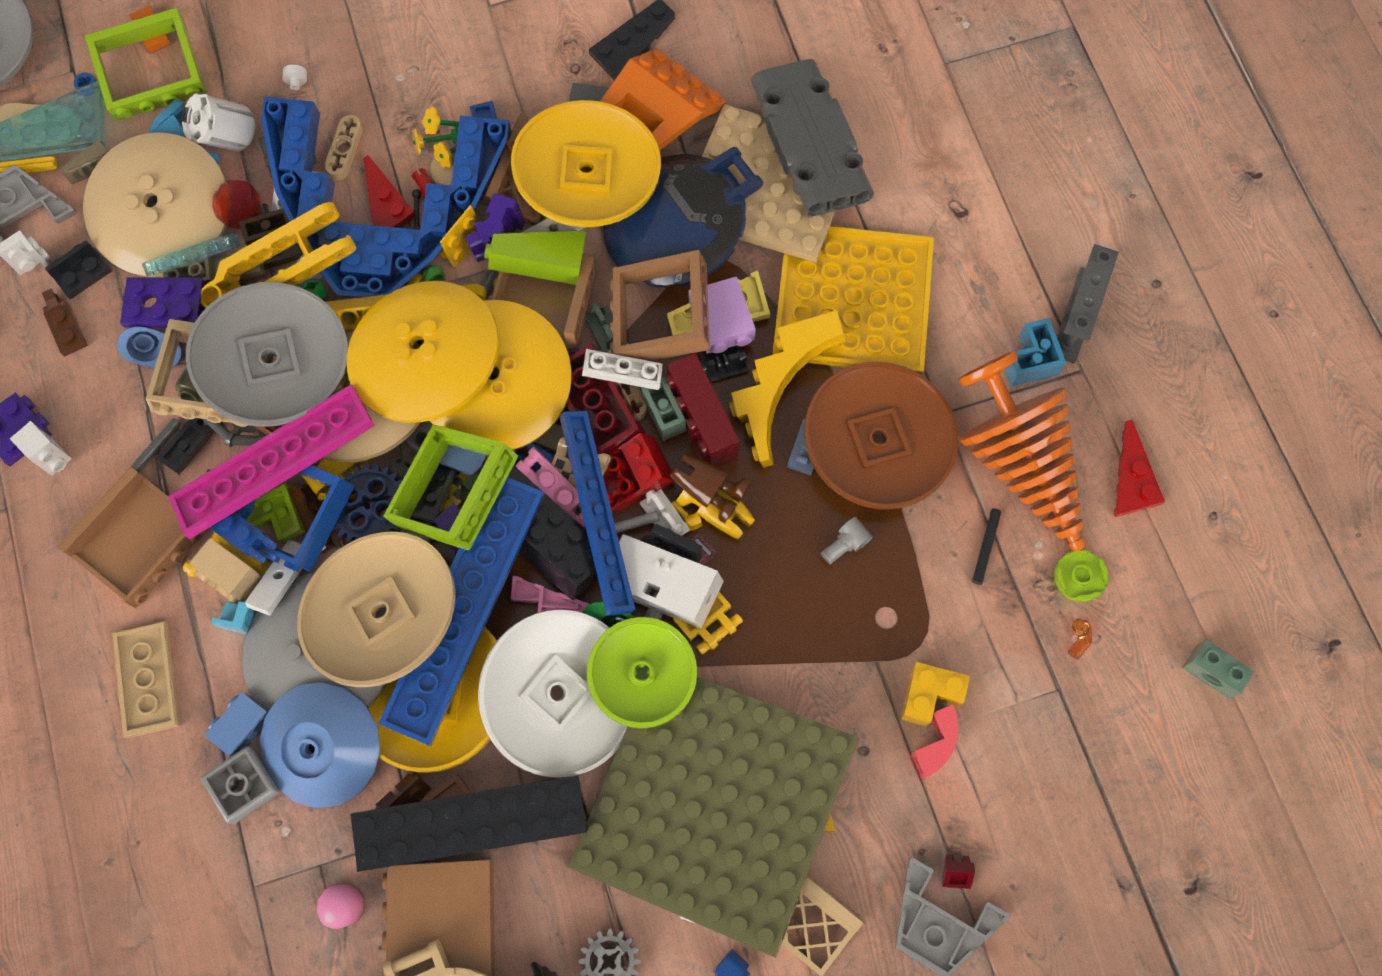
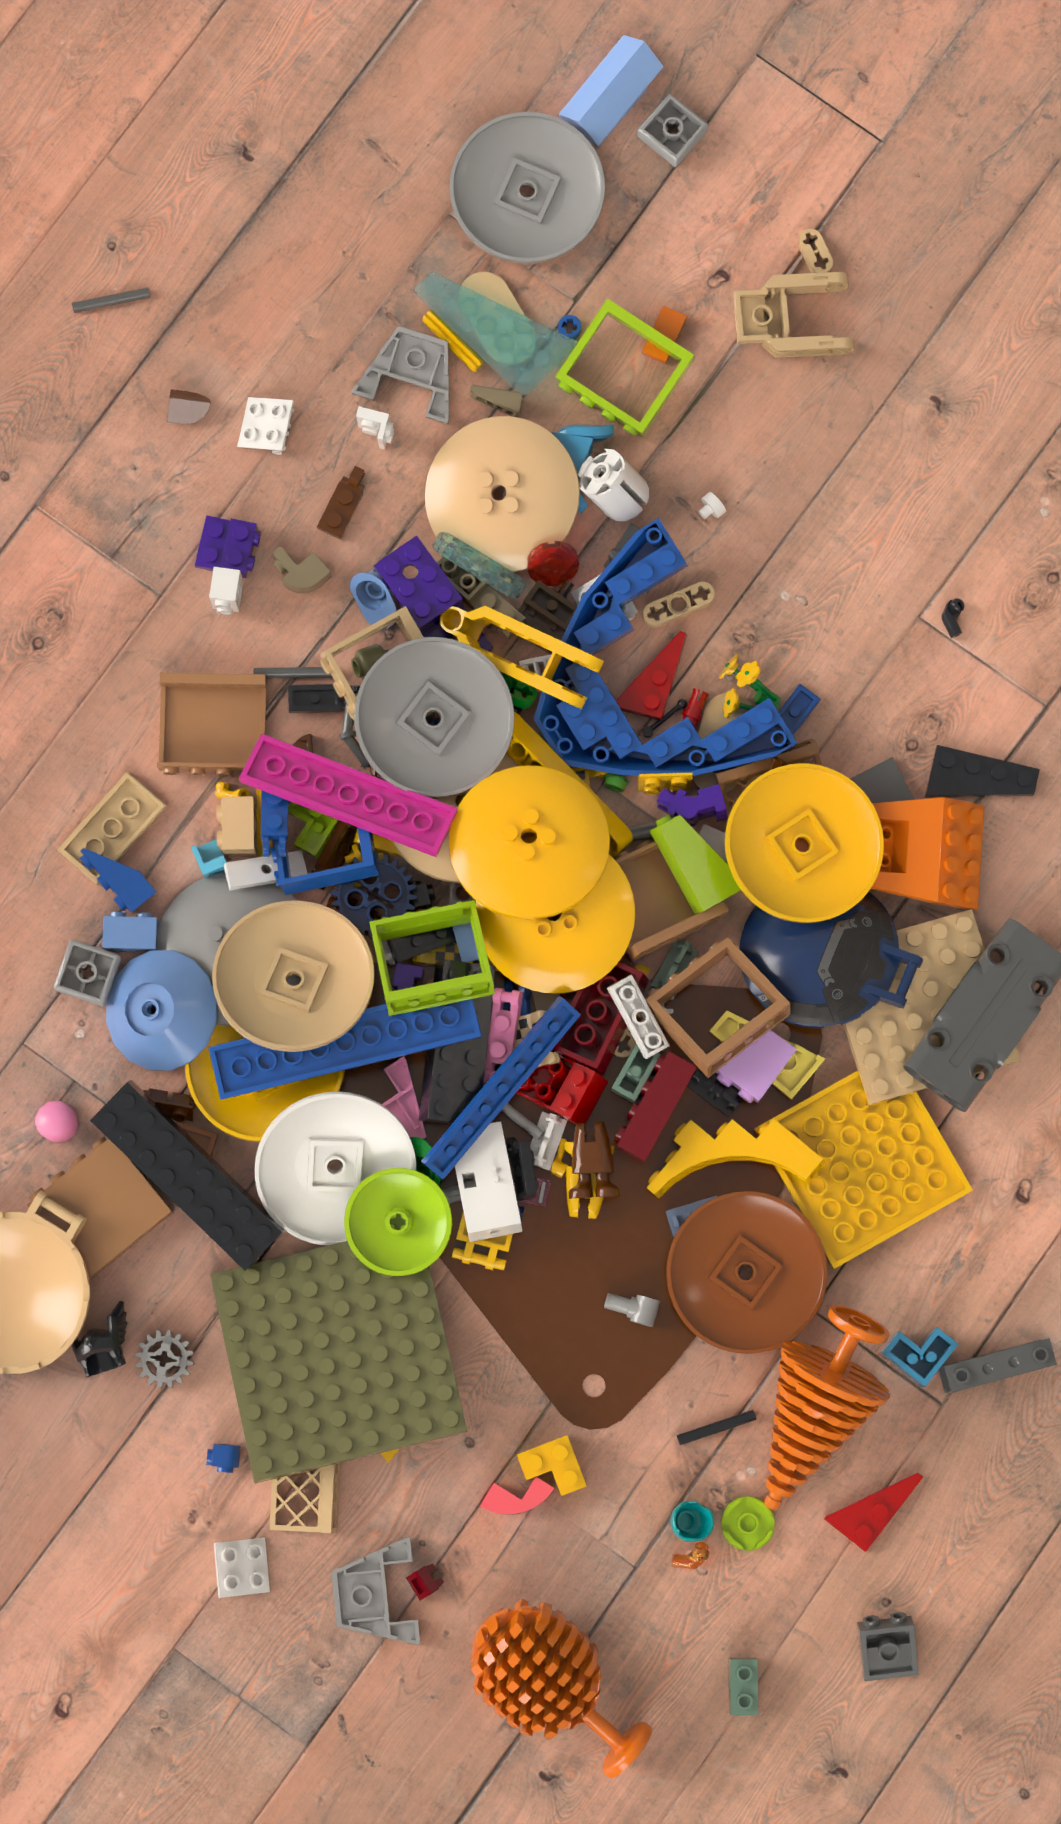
camera: 50 degrees right, 10 degrees up
(78, 269) = (398, 476): black bracket -> none
(85, 391) = (303, 577): none -> dark tan brick
(192, 698) = (124, 881): none -> blue slope
(1053, 615) = (692, 1521): none -> teal hair
(1114, 823) = (547, 1679): none -> orange plant
(1255, 535) = (887, 1647): none -> dark grey plate

